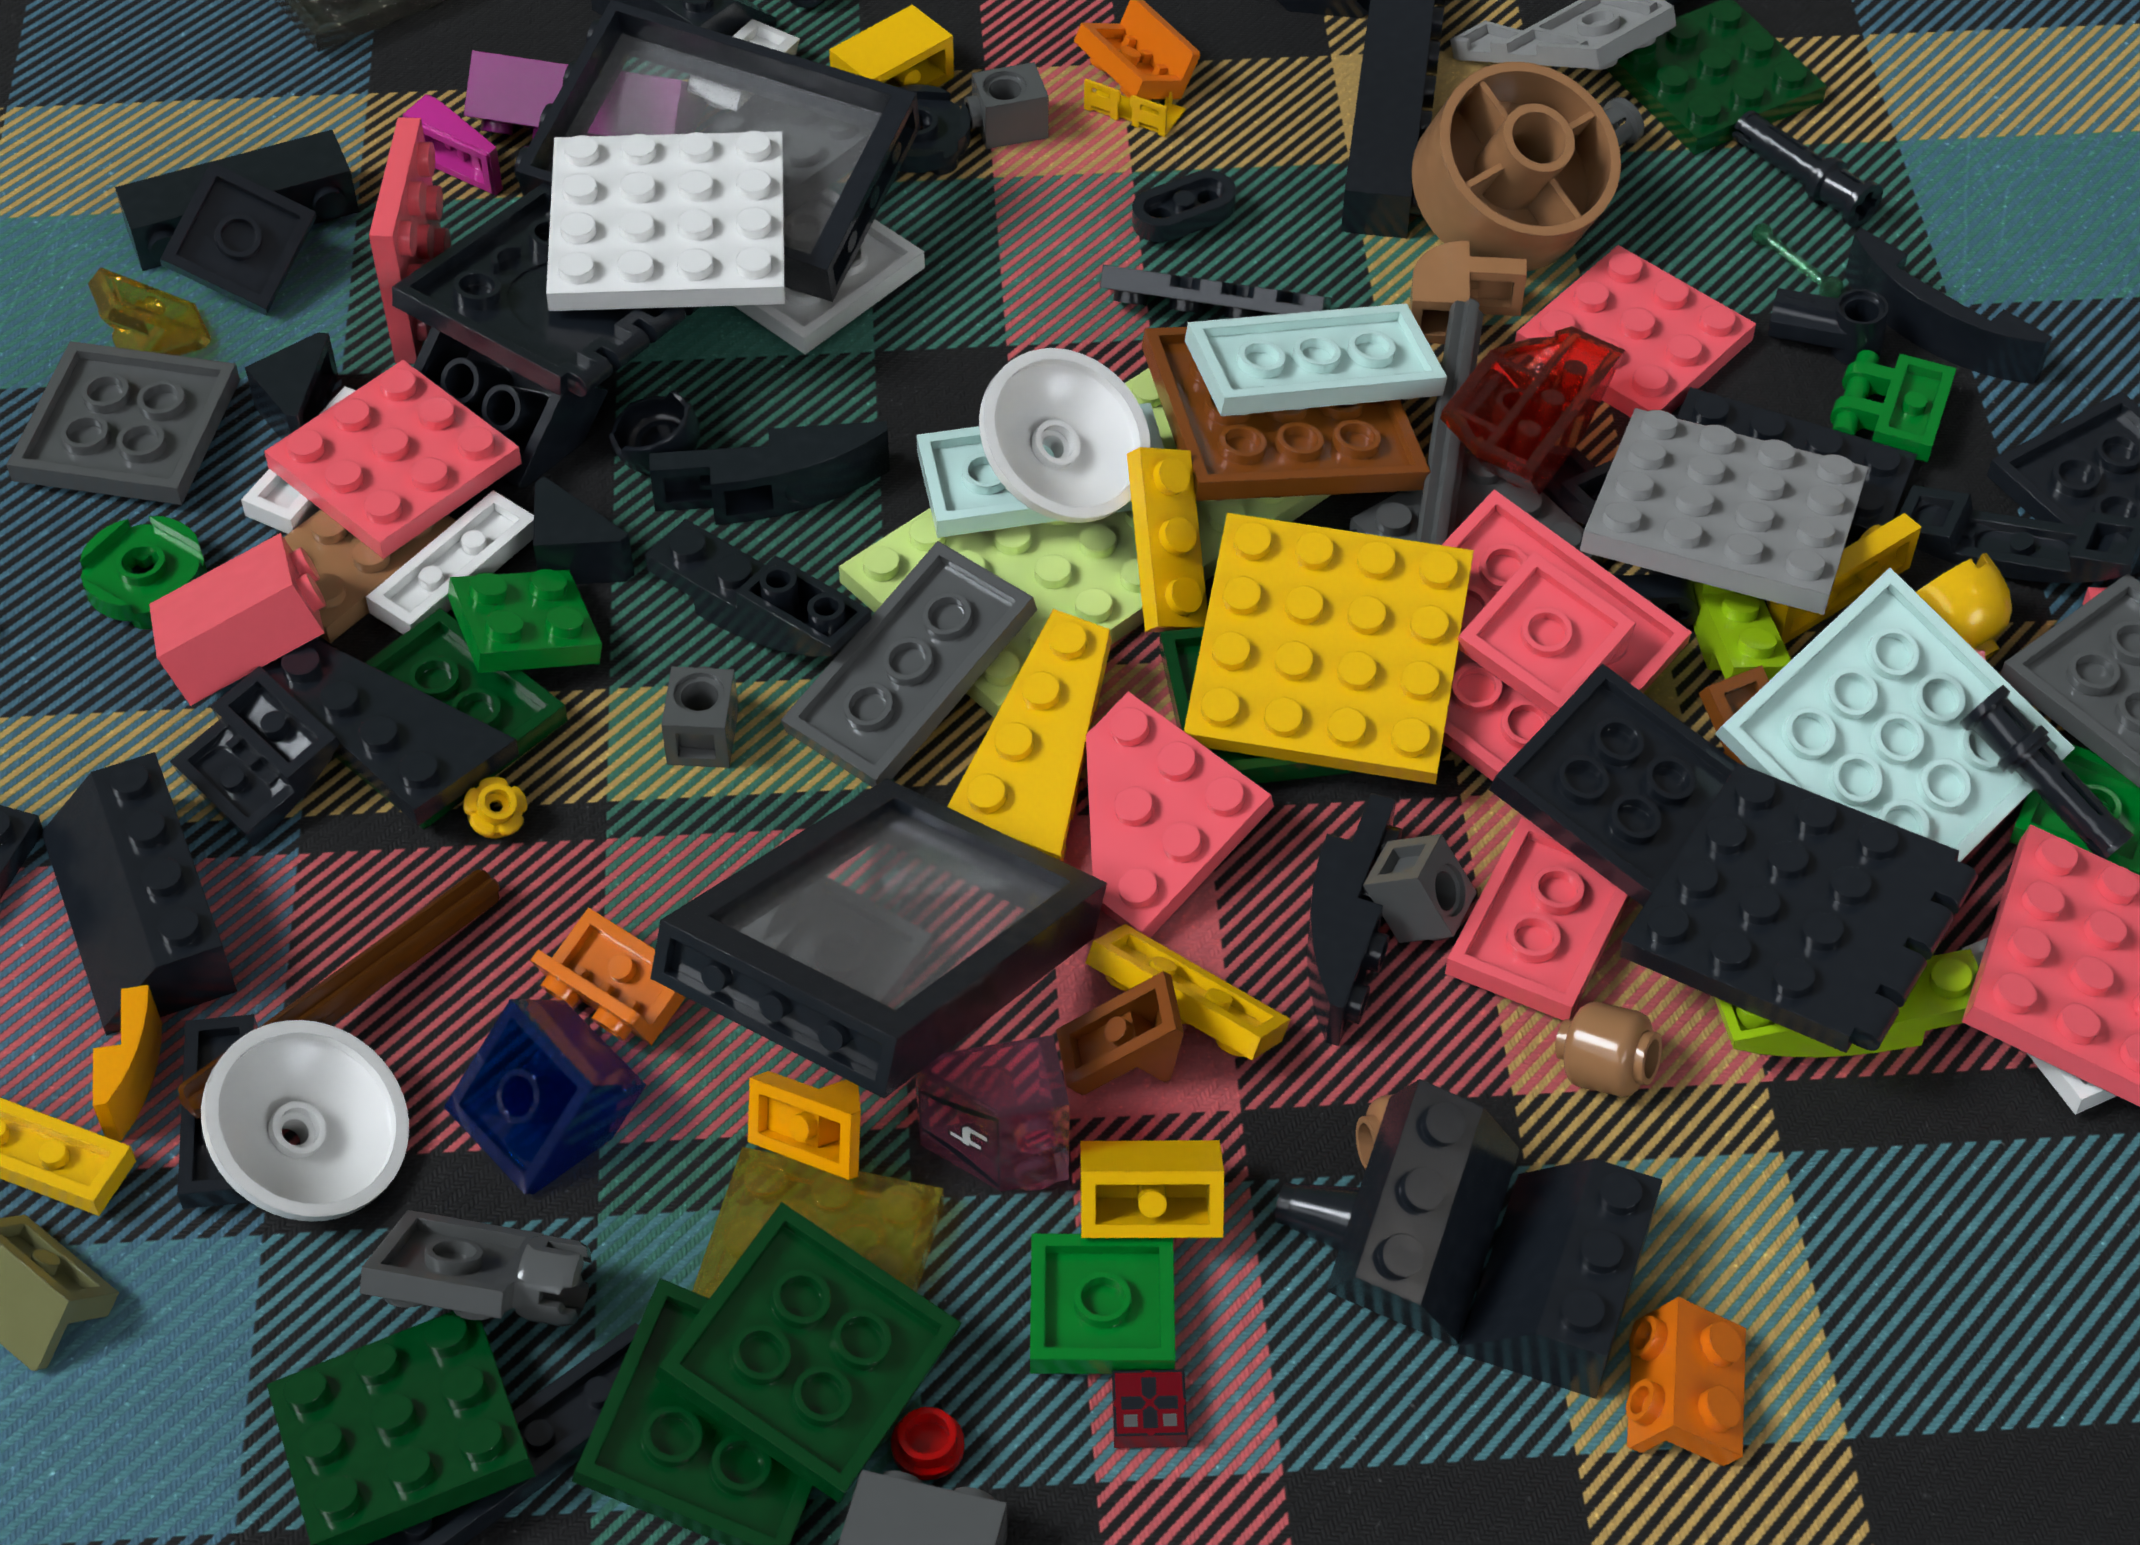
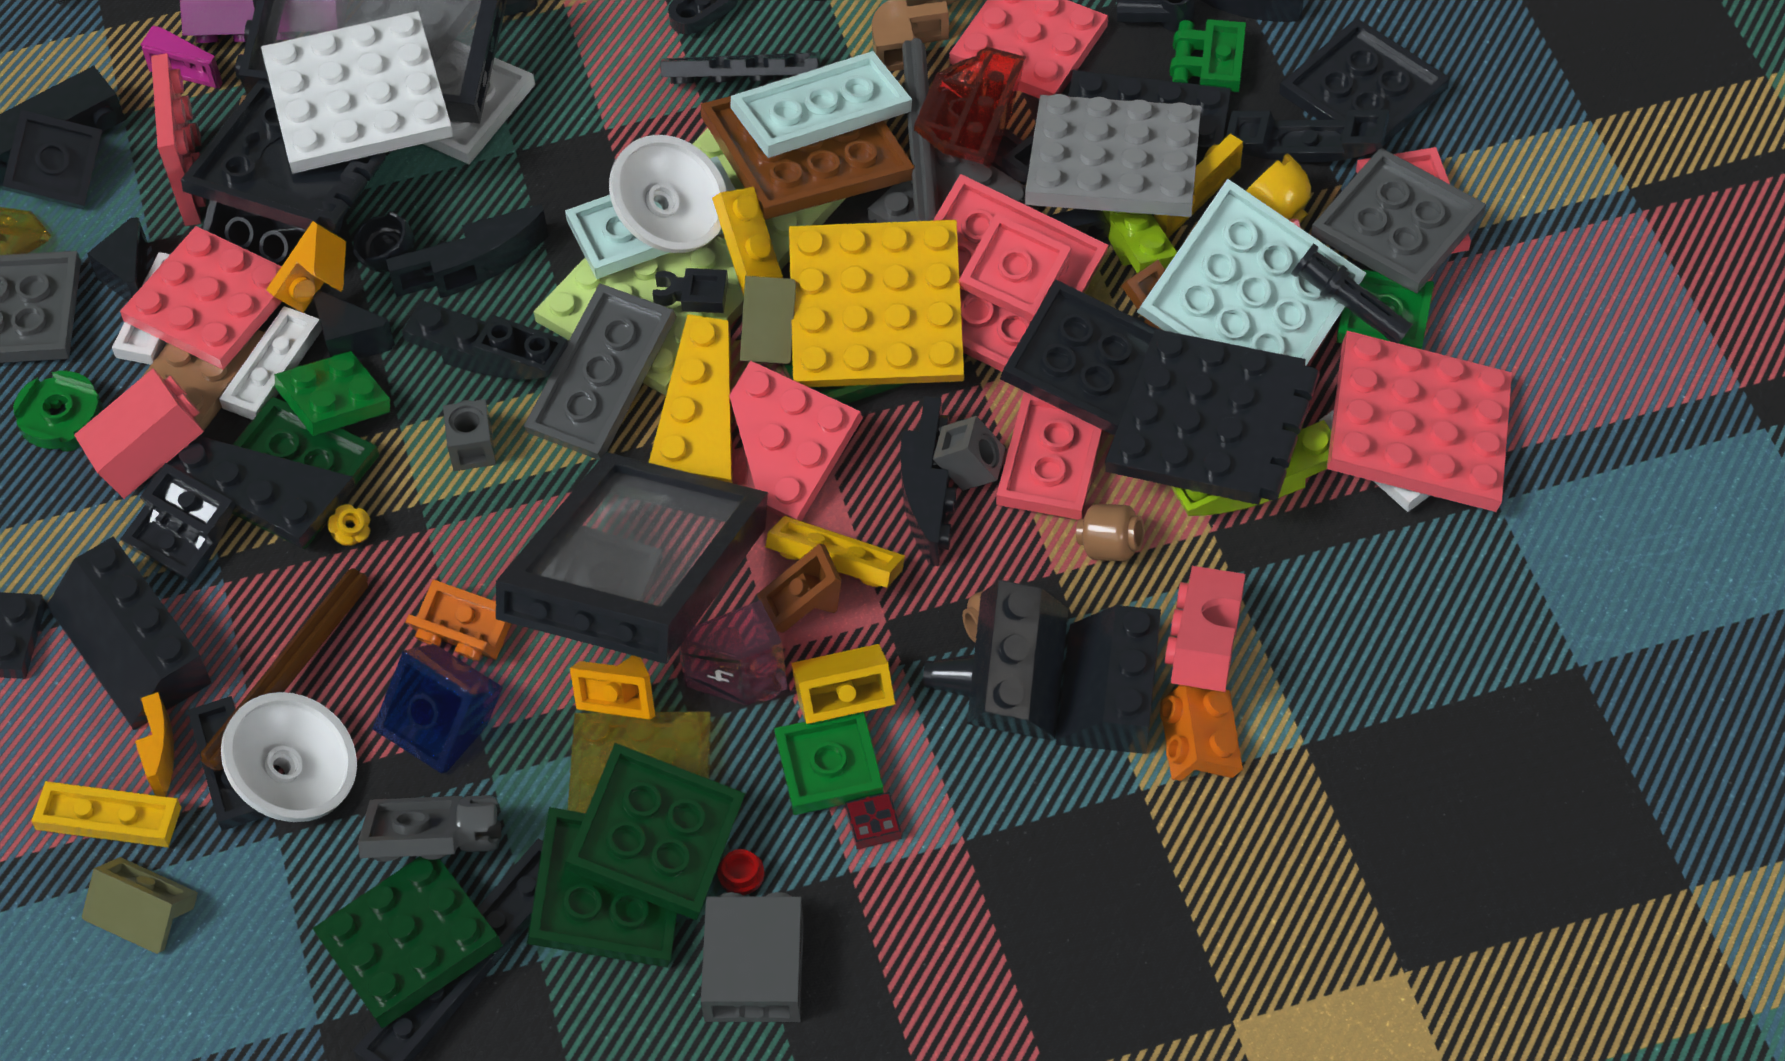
camera: 10 degrees left, 5 degrees up
(541, 437) = (314, 261): none -> light orange slope
(1076, 582) = (697, 291): none -> black plate
(1166, 638) = (767, 319): none -> olive panel
(1725, 1224) = (1205, 628): none -> coral arch

